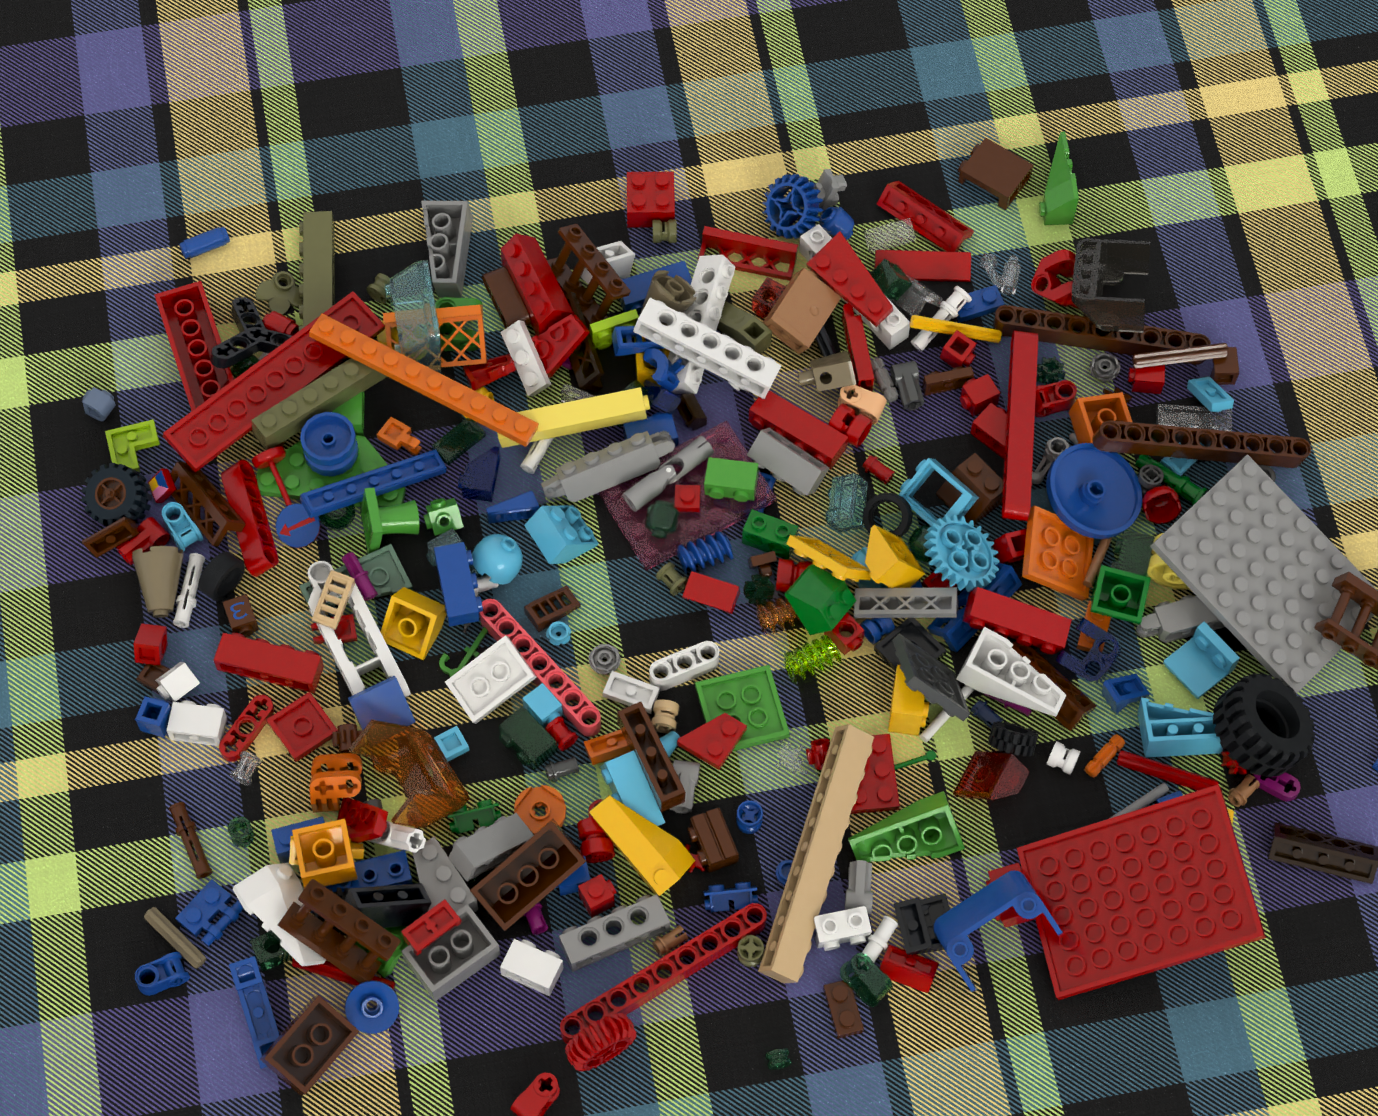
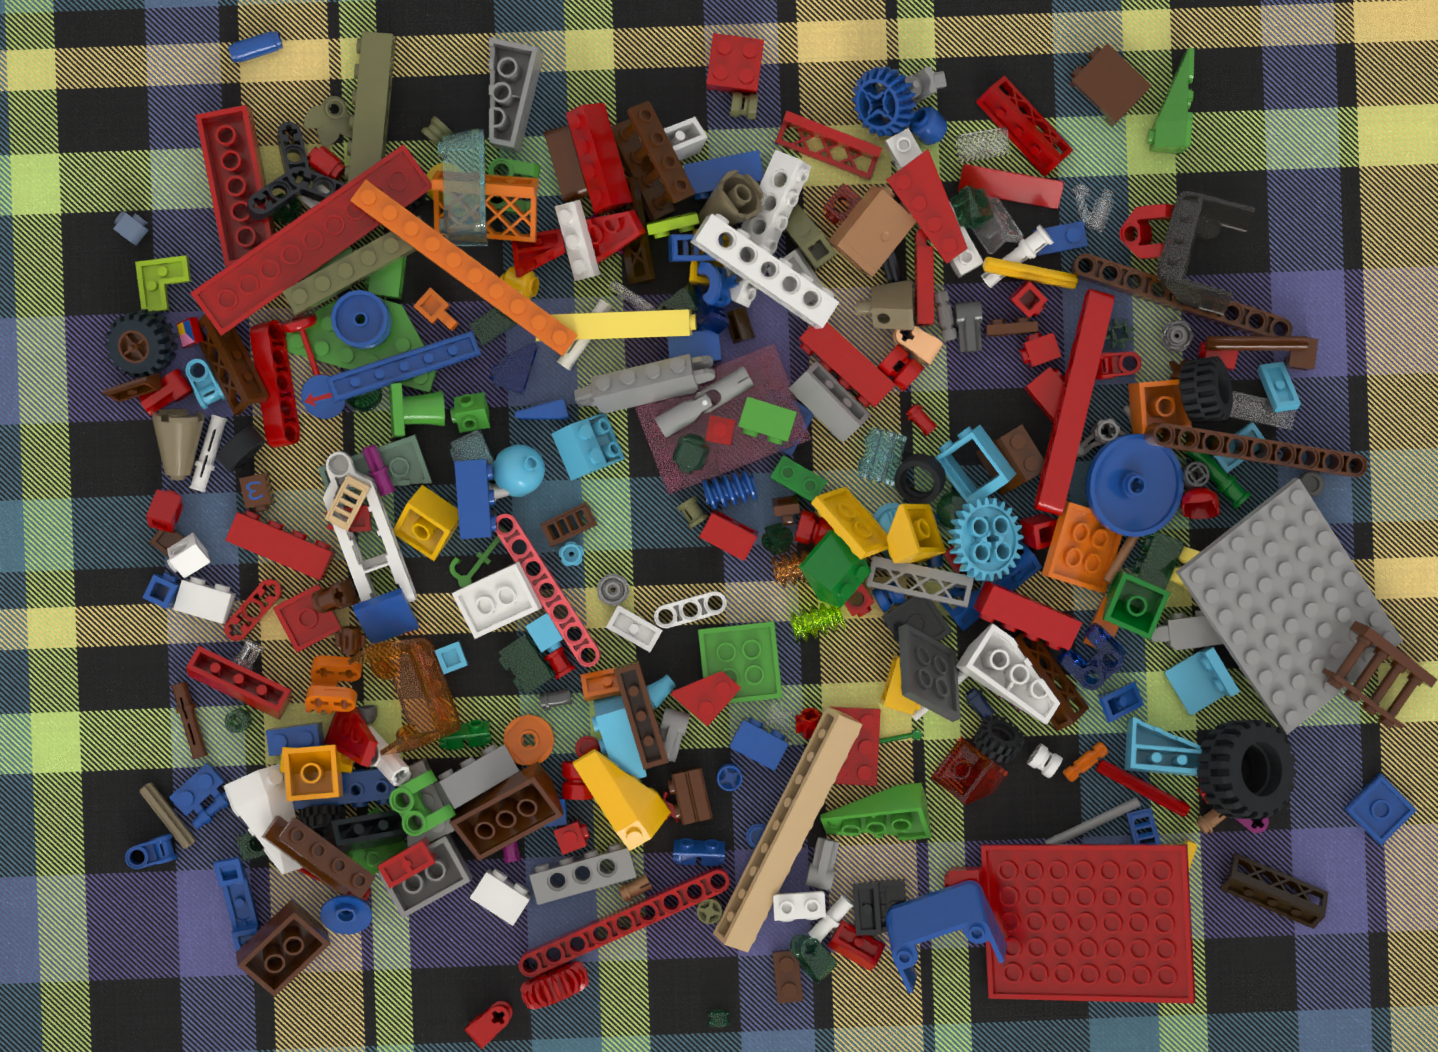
camera: 10 degrees right, 25 degrees up
(239, 792) = (239, 682): none -> red brick
(329, 698) = (335, 597): none -> reddish brown piece
(430, 853) = (417, 807): none -> bright green piece
(665, 715) = (662, 666): tan wheel -> none
(773, 781) = (759, 743): none -> blue brick
(1141, 396) = (1206, 390): none -> black tyre

